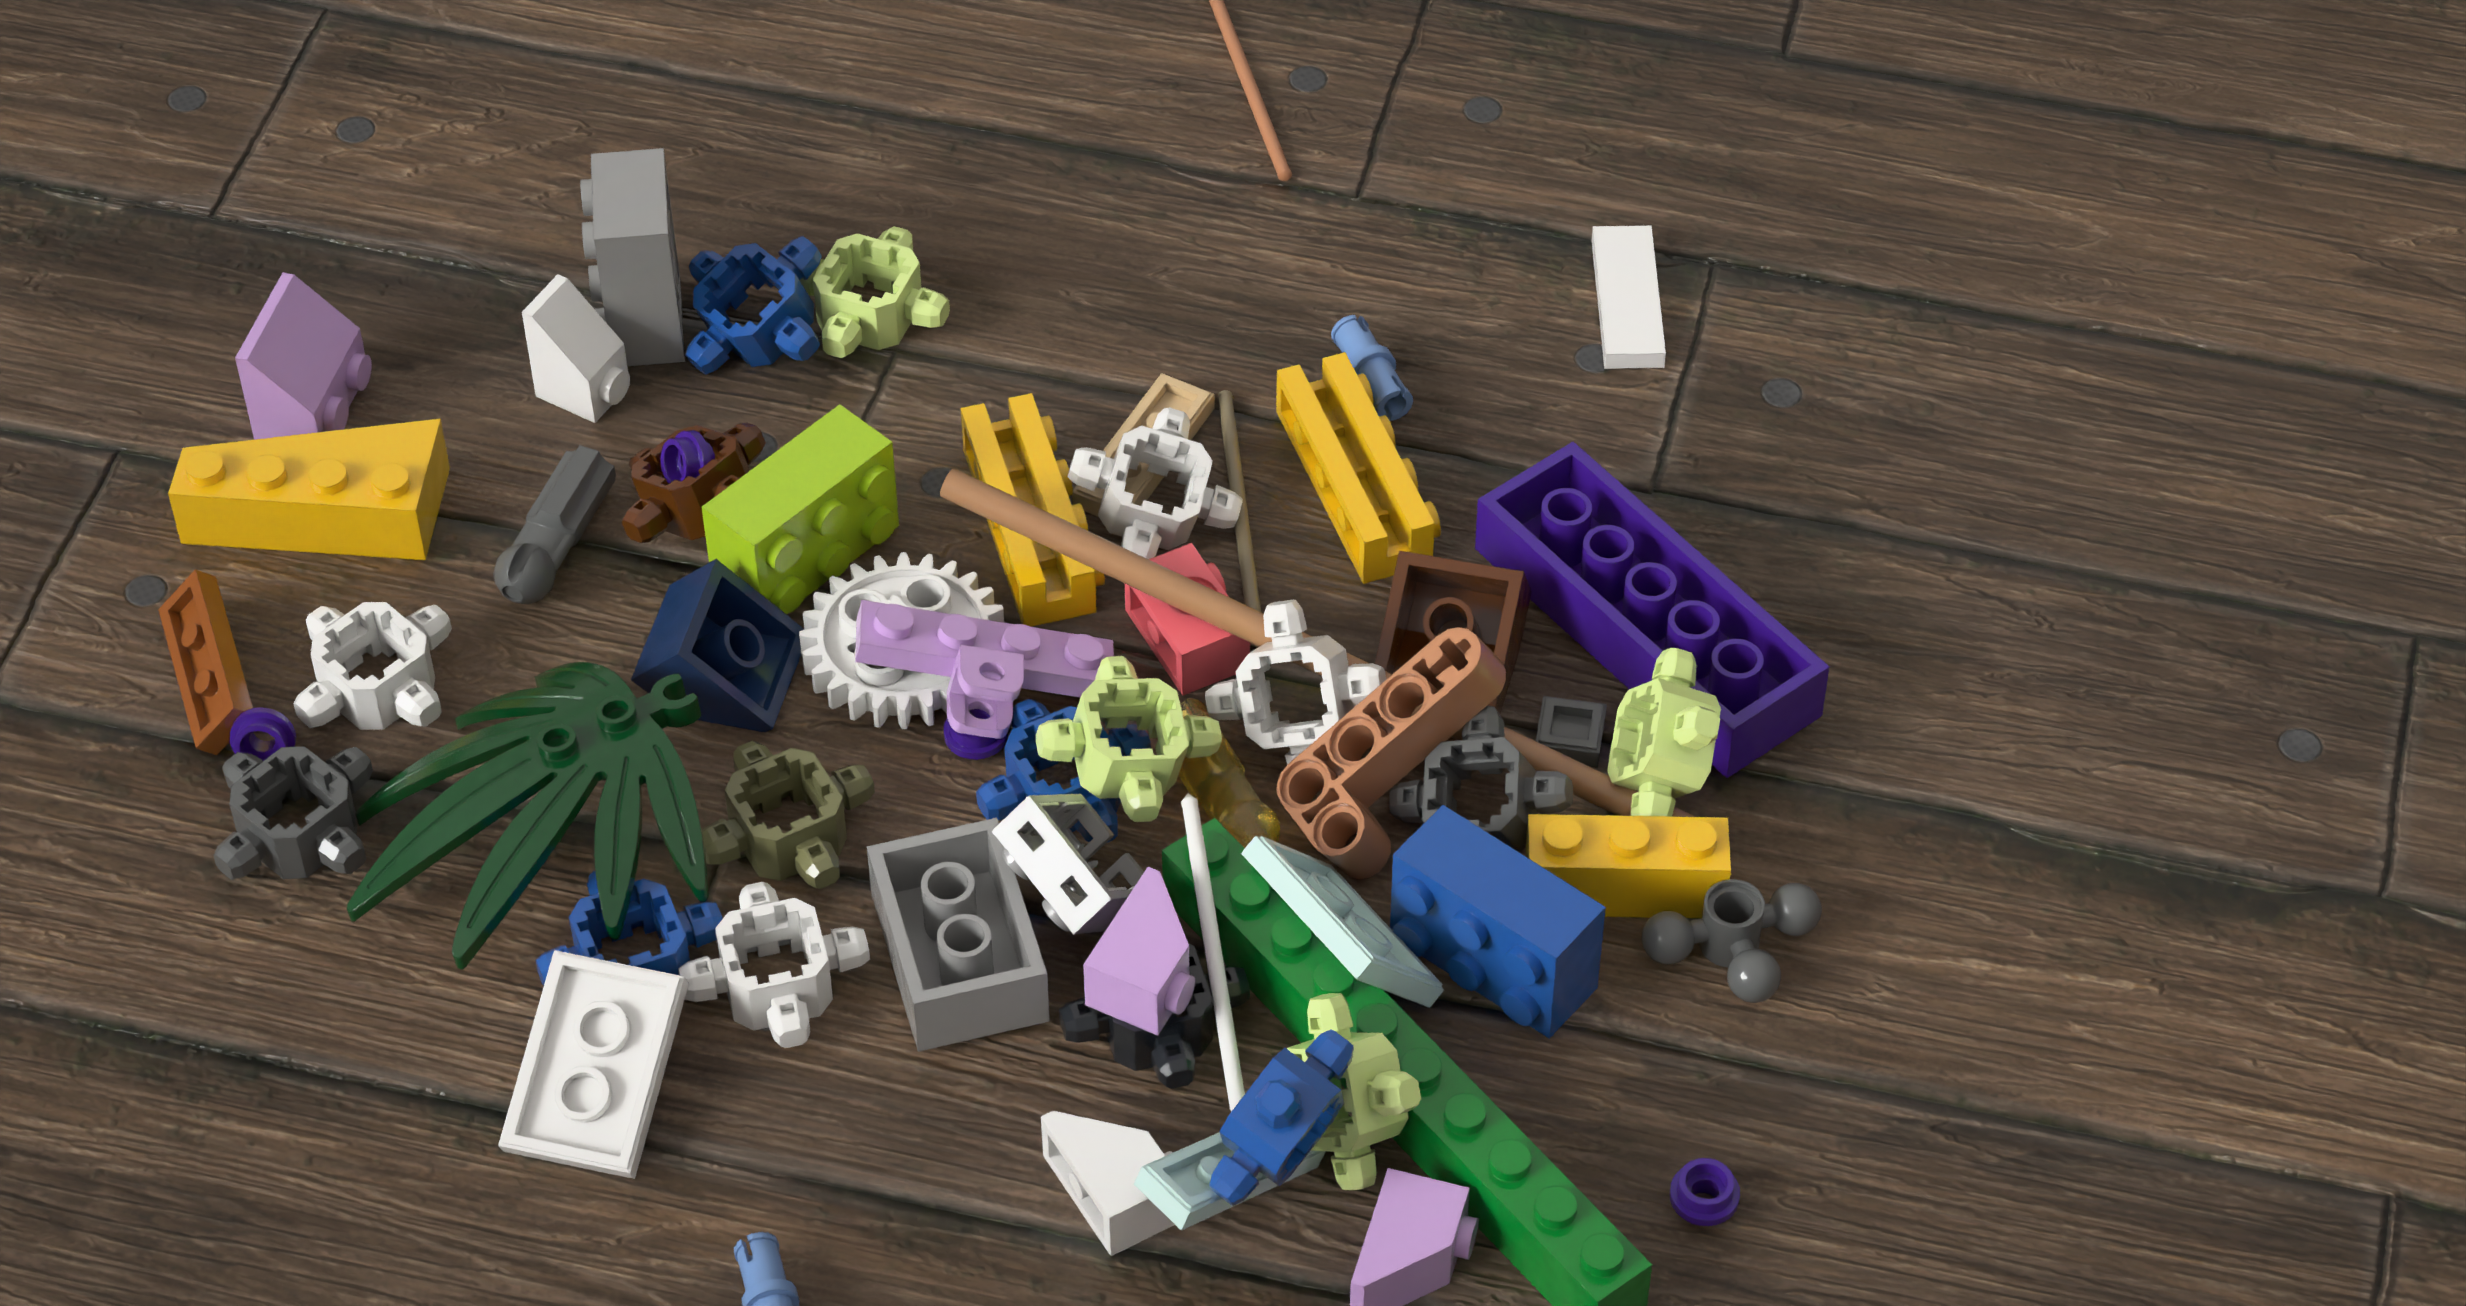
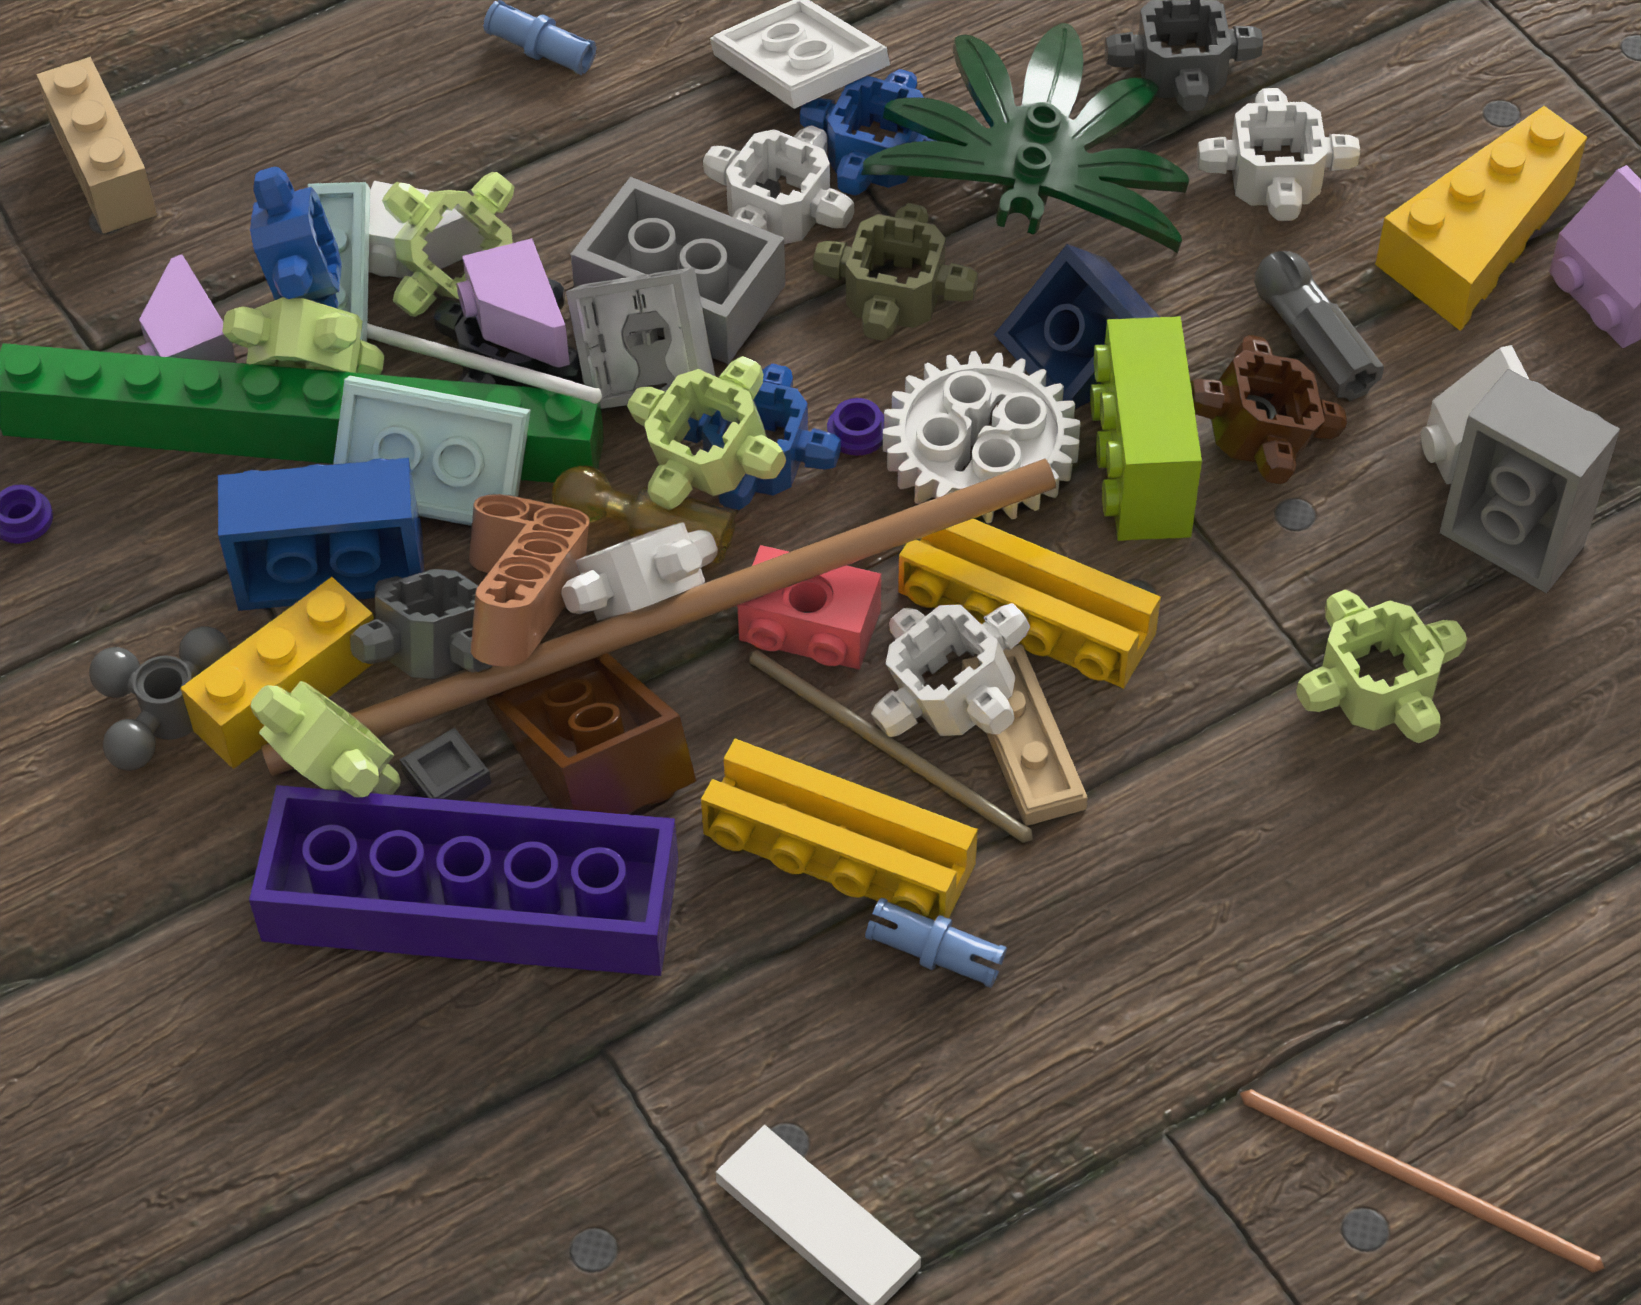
camera: 135 degrees right, 5 degrees up
(205, 660) = (1375, 83): dark orange plate -> none
(265, 720) = (1269, 66): dark purple plate -> none
(685, 455) = (1277, 394): dark purple plate -> none
(783, 325) = (1432, 567): blue piece -> none
(981, 656) = (885, 427): lavender plate -> none
(1117, 1086) = (423, 215): none -> yellowish green piece

